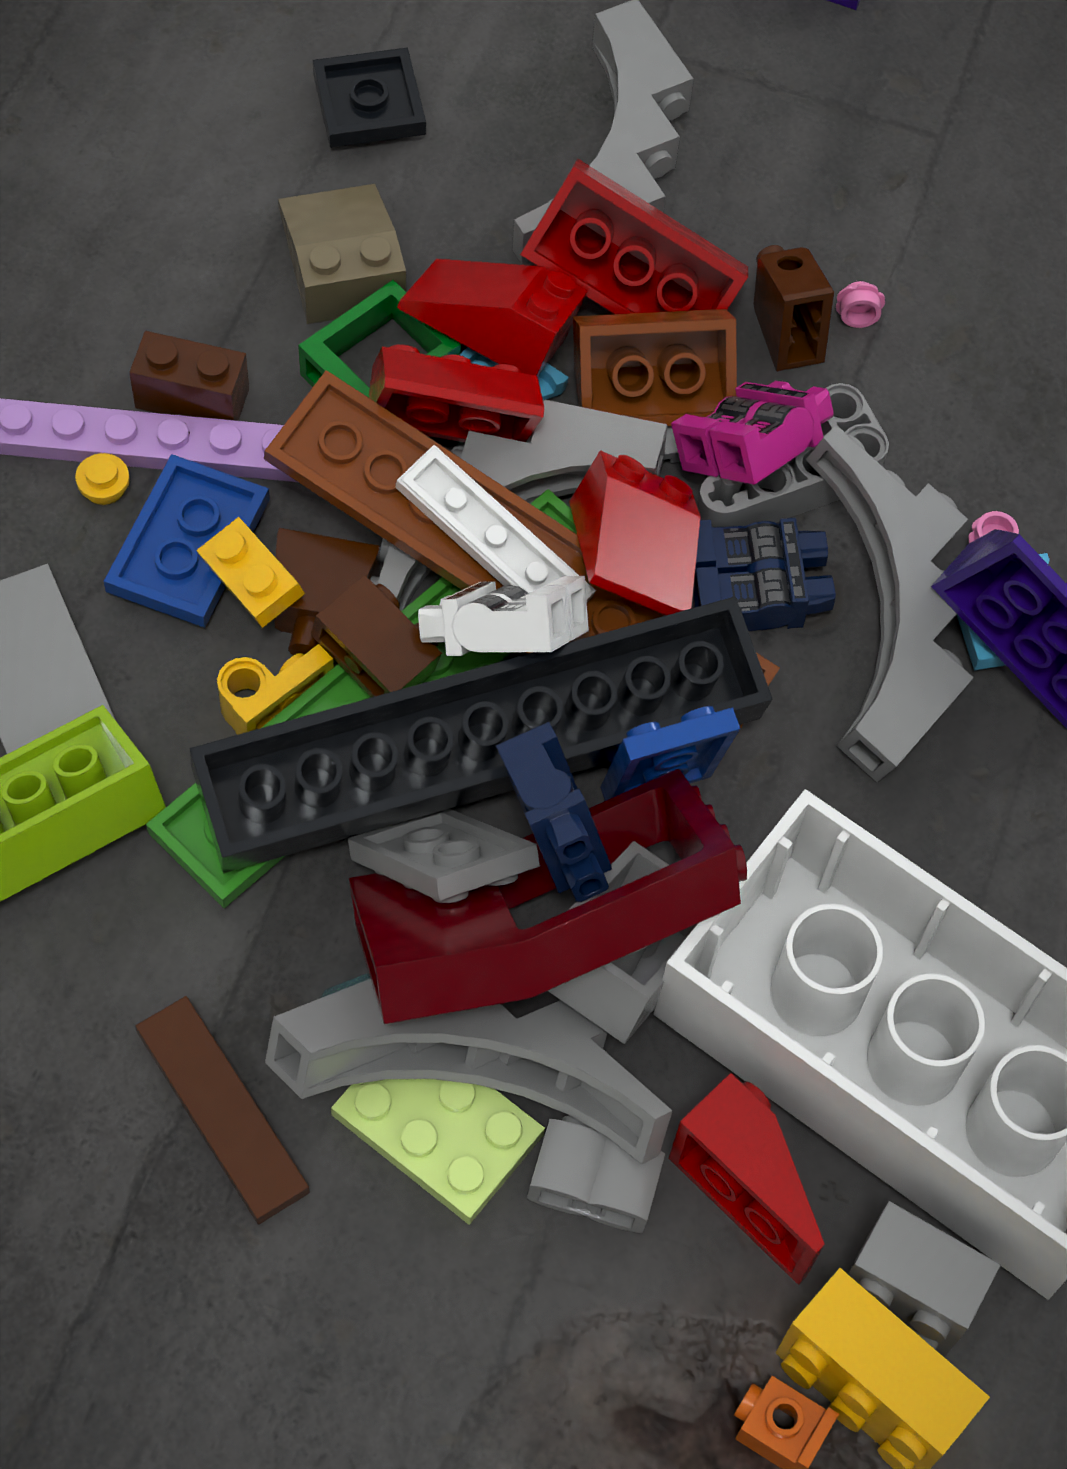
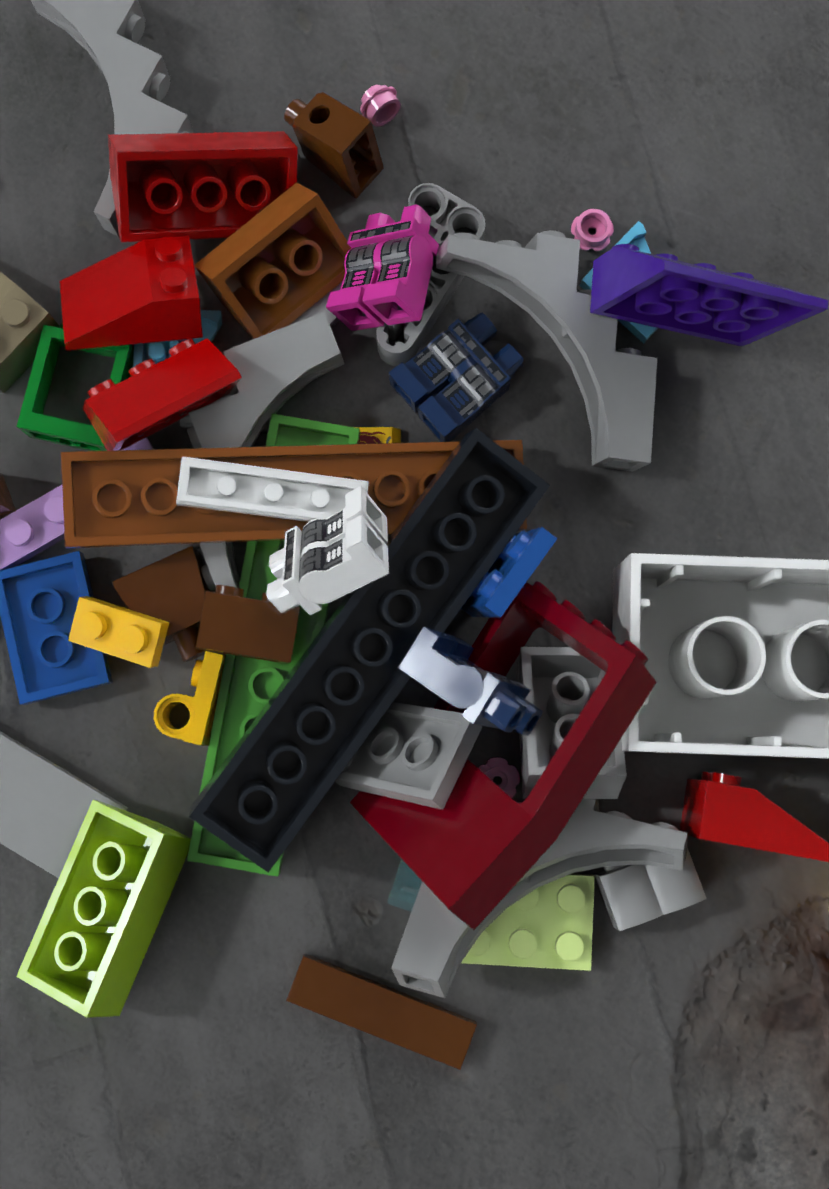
camera: 30 degrees left, 20 degrees up
(637, 533) = (366, 417): slope -> none

